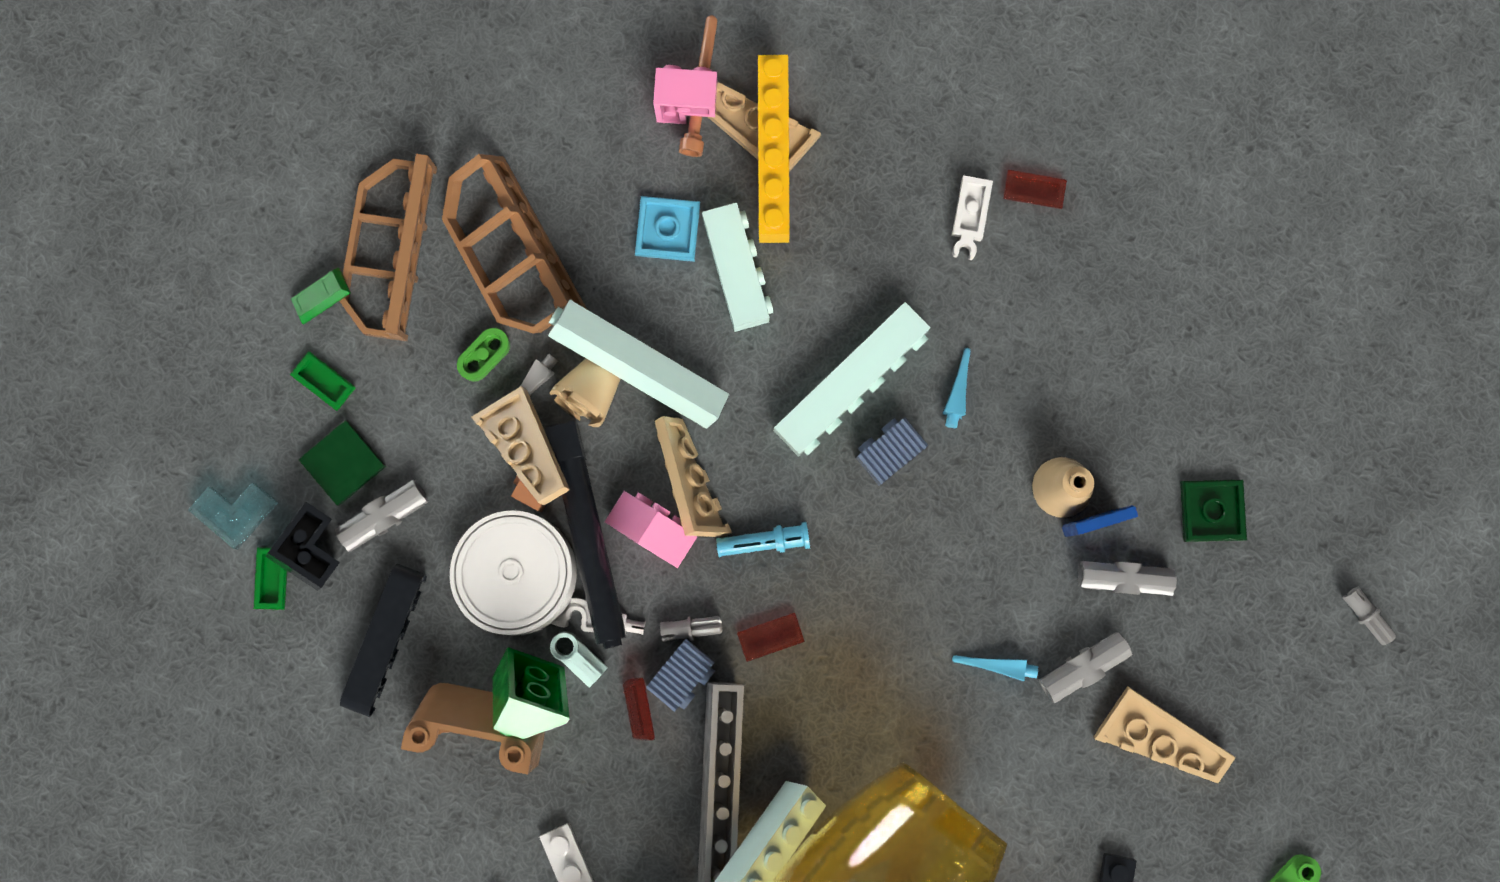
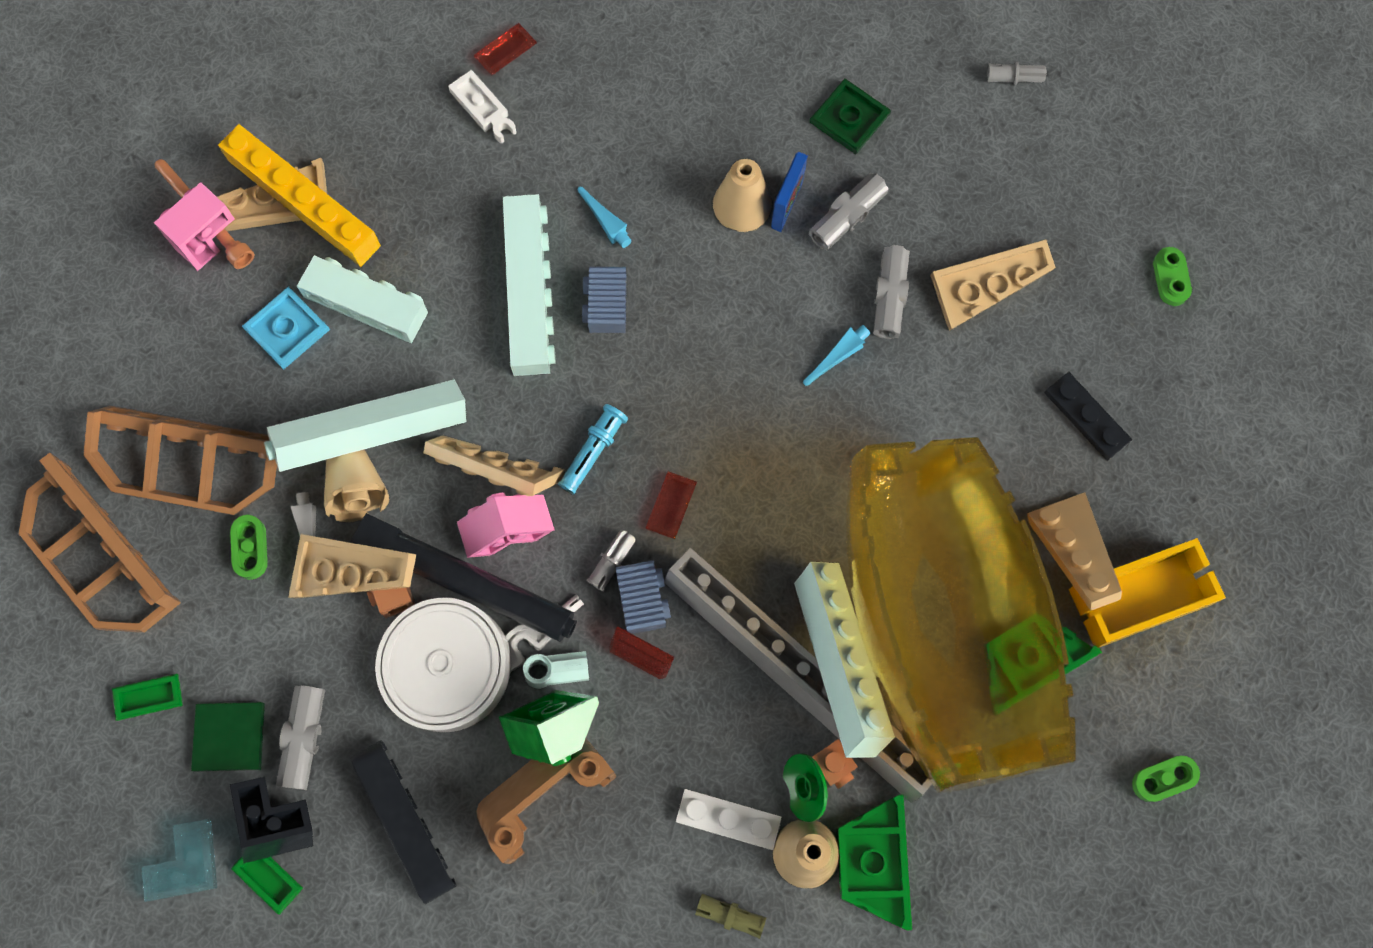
camera: 50 degrees left, 10 degrees down
(320, 295) = (76, 640): tile -> none

